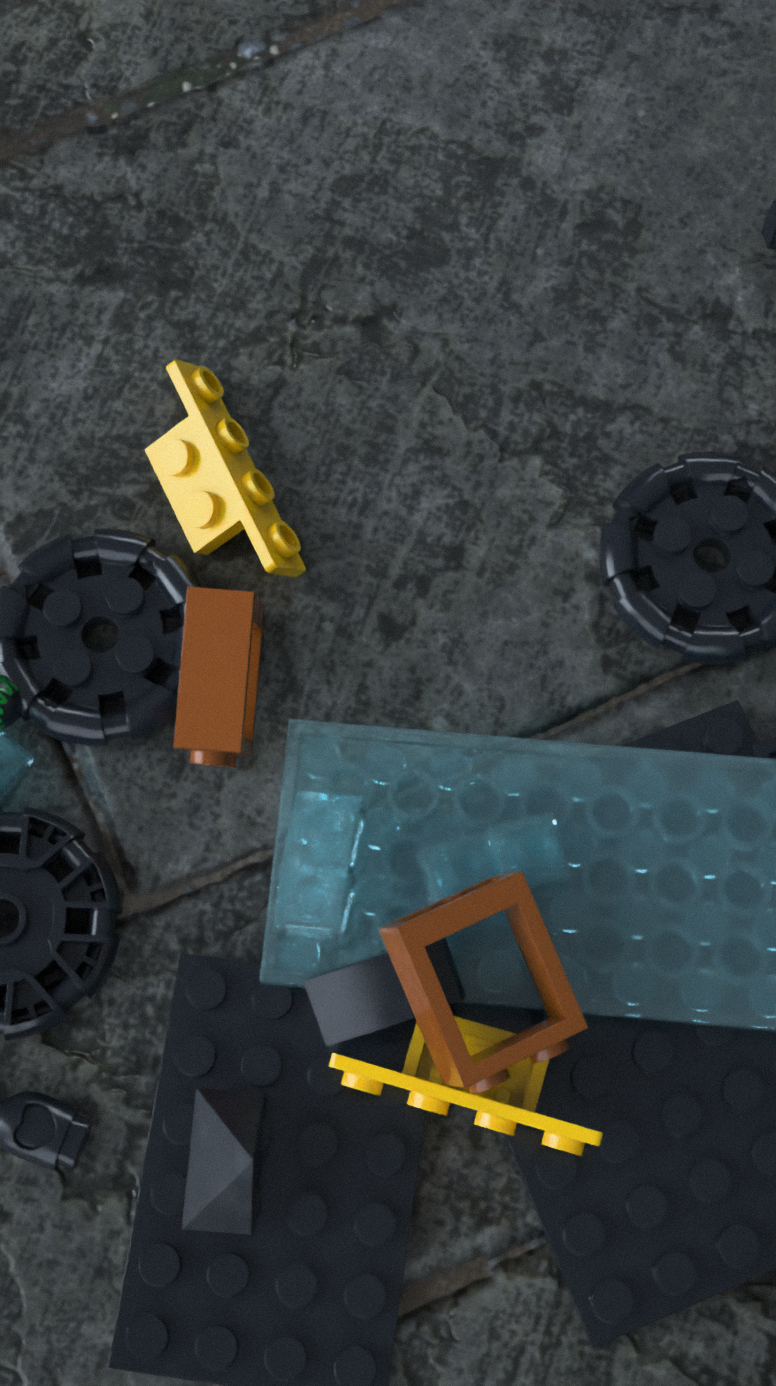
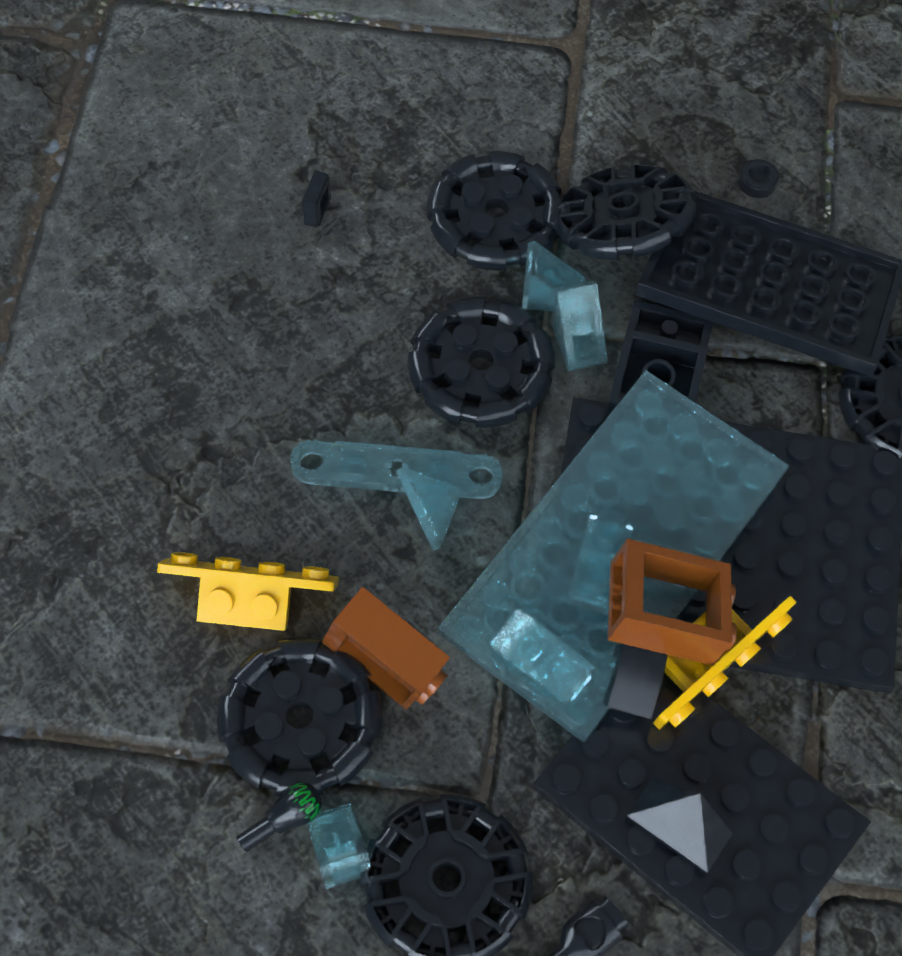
camera: 60 degrees left, 10 degrees down
(457, 611) = (432, 503): none -> clear light blue slope
(506, 586) = (368, 464): none -> clear light blue piece

